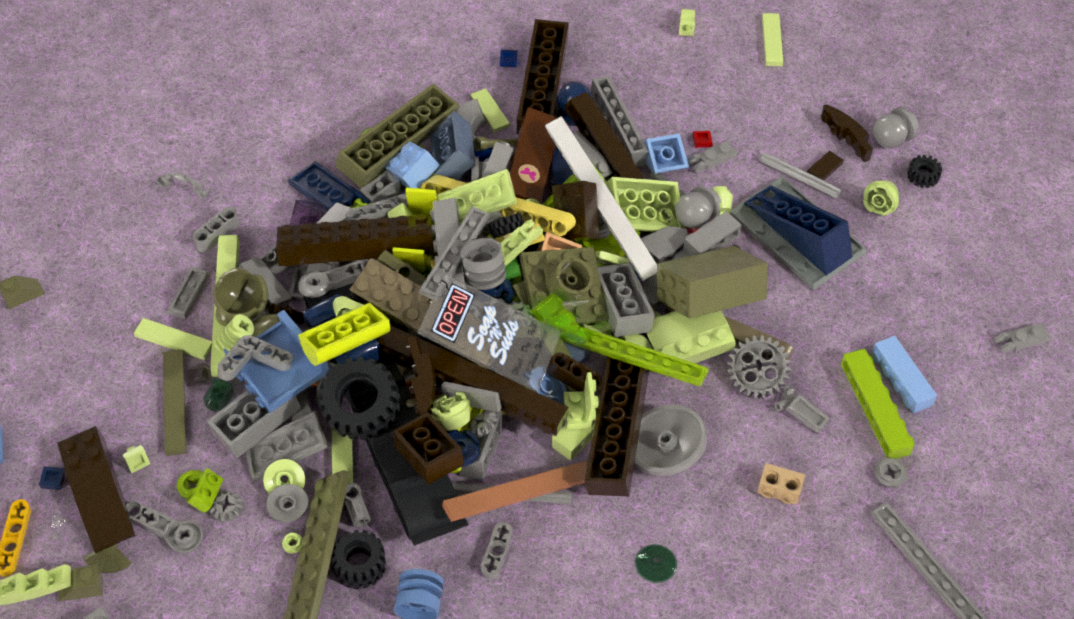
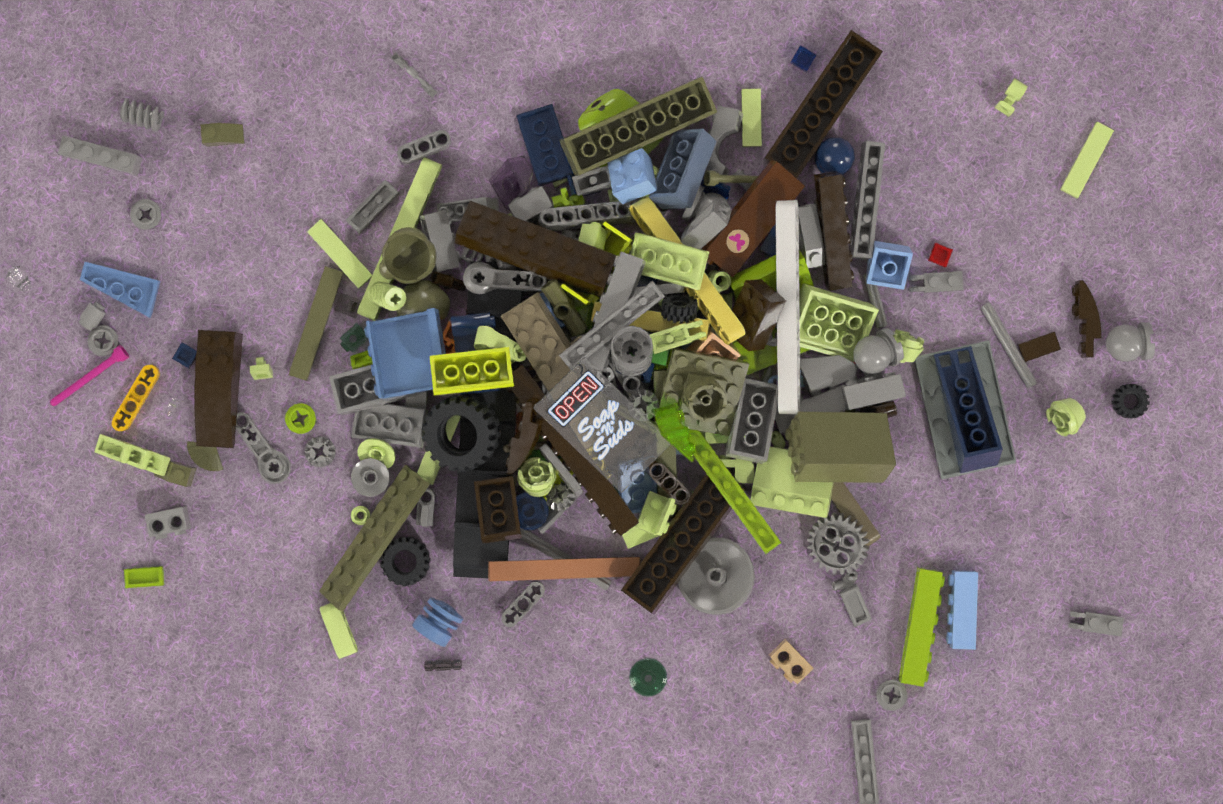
camera: 25 degrees right, 35 degrees up
(205, 491) = (305, 436): lime plate -> none
(251, 347) = (383, 337): light grey beam -> none
(609, 259) = (762, 373): yellowish green tile -> none

